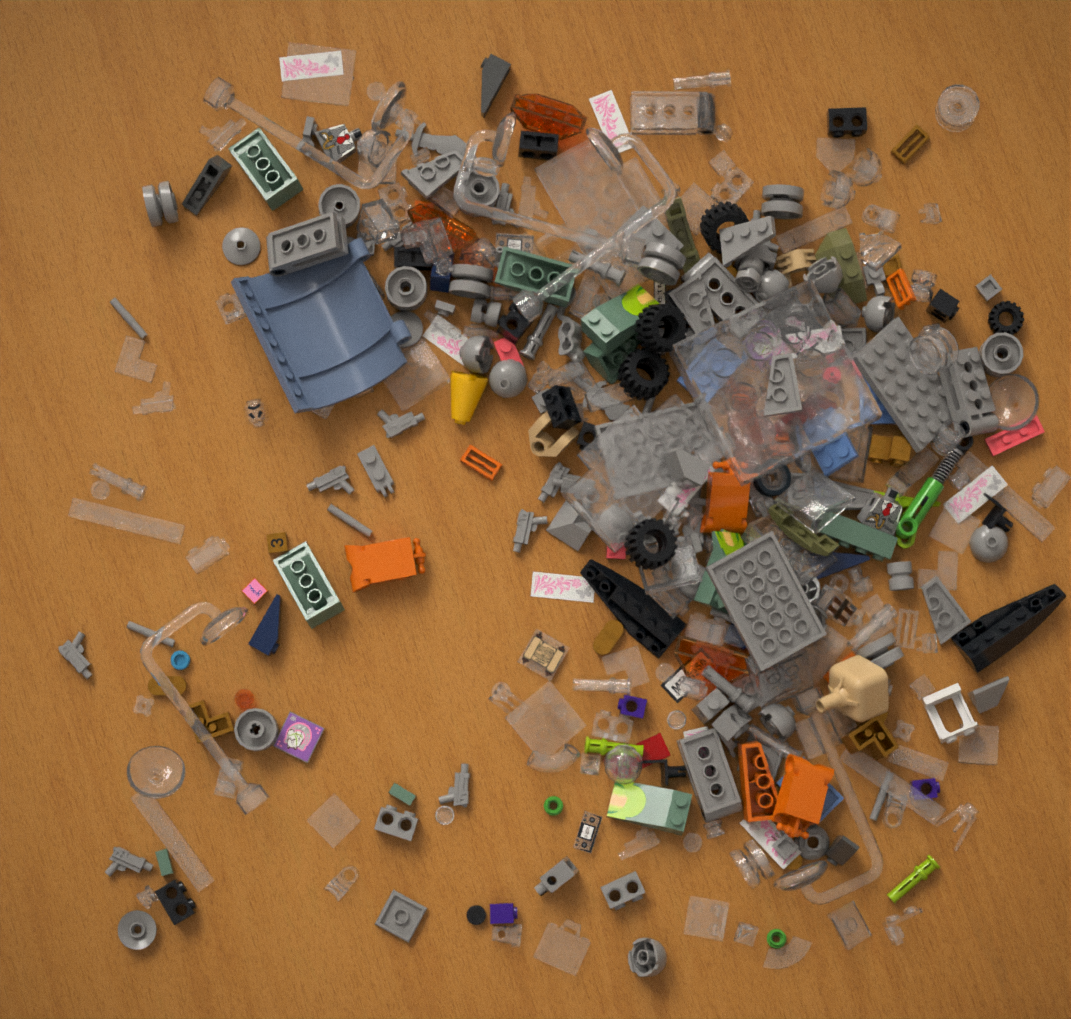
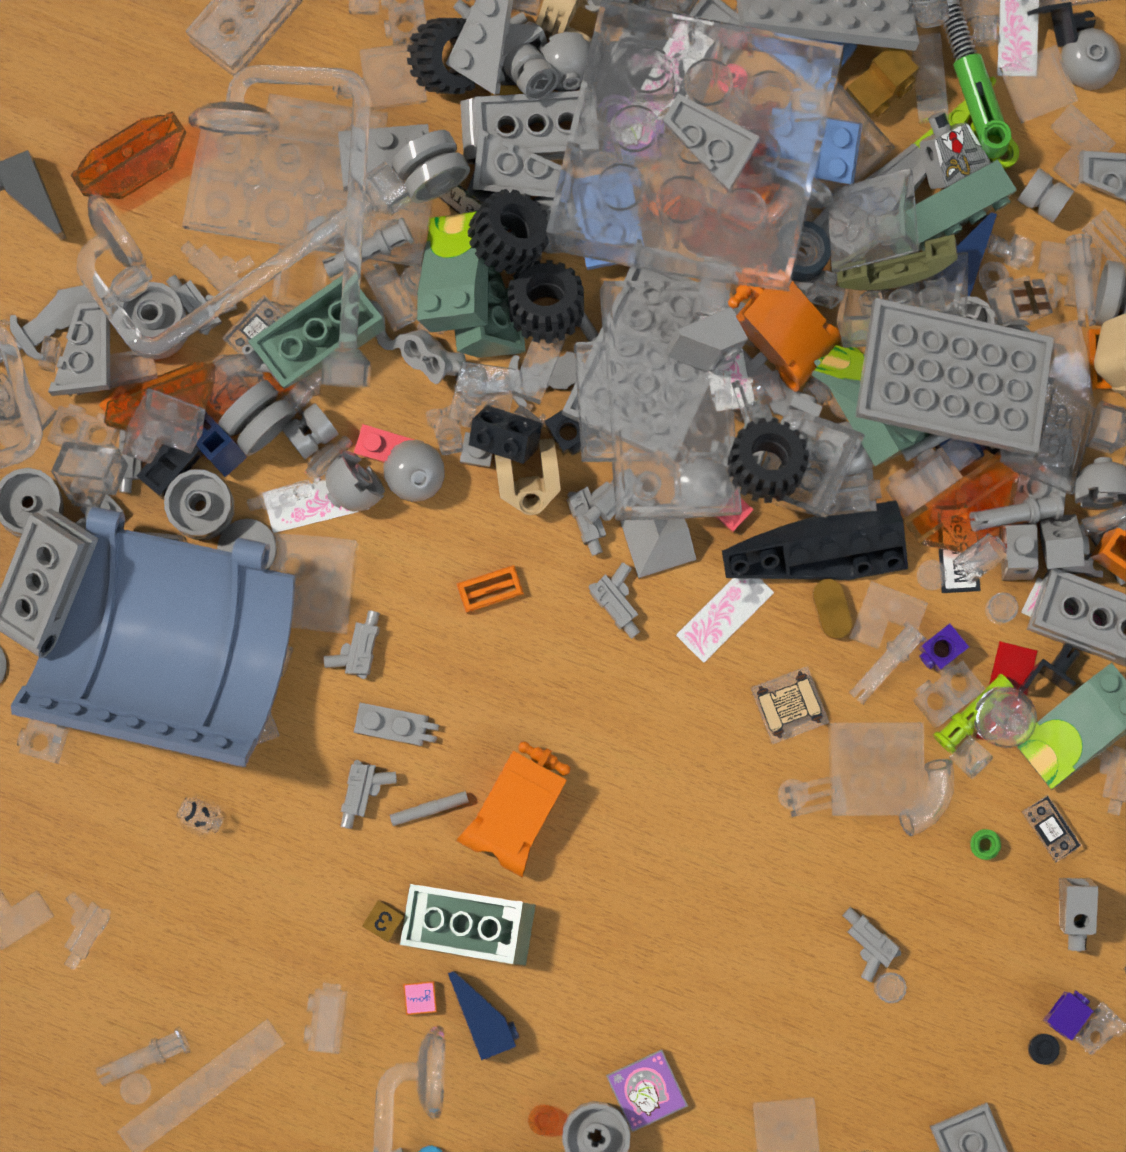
camera: 50 degrees left, 0 degrees up
(395, 827) = (857, 1063): light grey brick -> none
(402, 794) = (821, 1019): sand green piece -> none
(444, 270) = (217, 436): clear plate -> none
(444, 309) = (263, 478): light grey plate -> none
(465, 395) = (391, 539): yellow cone -> none
(514, 318) = (354, 400): black brick -> none
(535, 340) = (393, 398): light grey pin -> none
(538, 145) = (156, 199): black brick -> none
(609, 116) = (191, 85): white sticker -> none
(680, 229) = (401, 111): olive slope -> none

